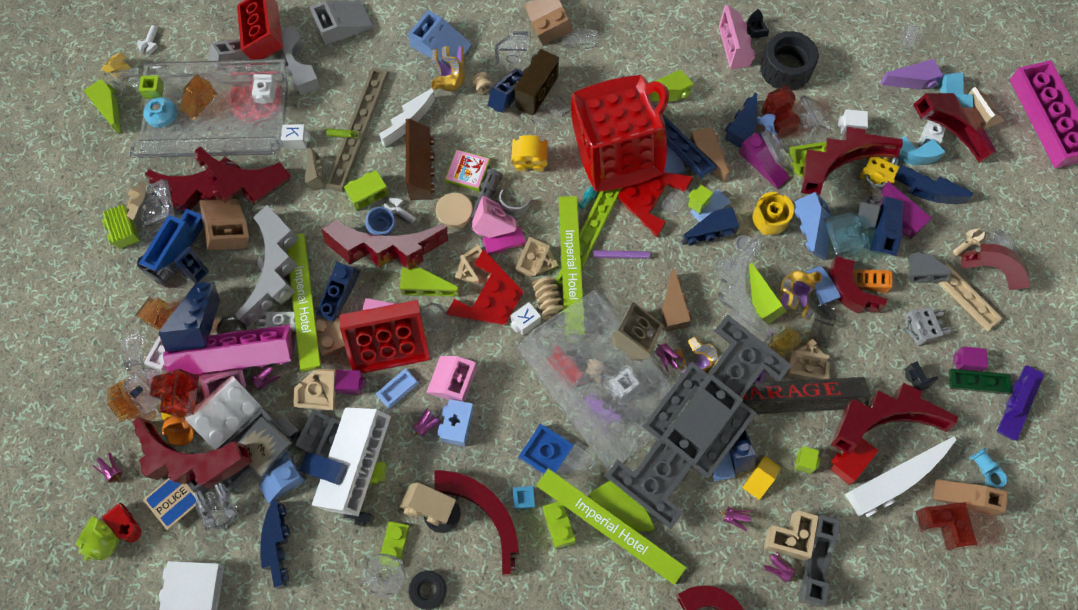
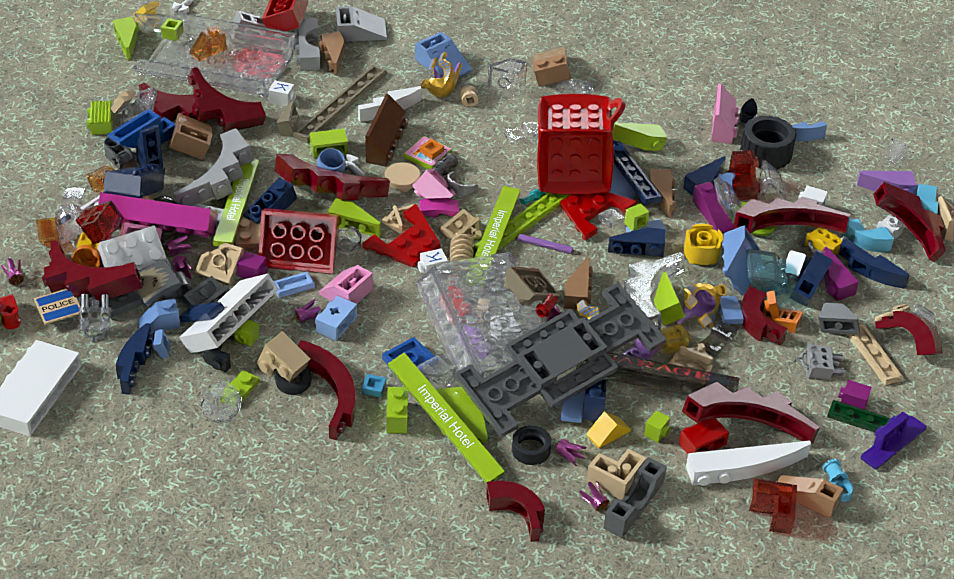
camera: 15 degrees right, 25 degrees down
(163, 116) = (171, 49): medium azure piece -> none
(263, 89) = (269, 51): white brick -> none
(276, 403) = (180, 264): none -> flat silver piece
(296, 516) = (161, 344): none -> medium blue plate
(324, 56) = (333, 50): none -> medium nougat slope
(341, 133) = (324, 100): lime piece -> none
(414, 588) = (255, 437): black tyre -> none
(472, 169) = (431, 149): none -> orange plate
(502, 93) = (489, 106): dark blue slope -> none
(529, 153) = (489, 149): yellow brick -> none
(536, 82) = (518, 103): dark brown brick -> none
(660, 353) = (543, 309): none -> red pin
(715, 522) = (527, 456): none -> black tyre
(817, 33) = (810, 132): none -> medium blue slope
(862, 273) = (771, 304): none -> orange plate
(917, 377) = (794, 394): black plate -> none

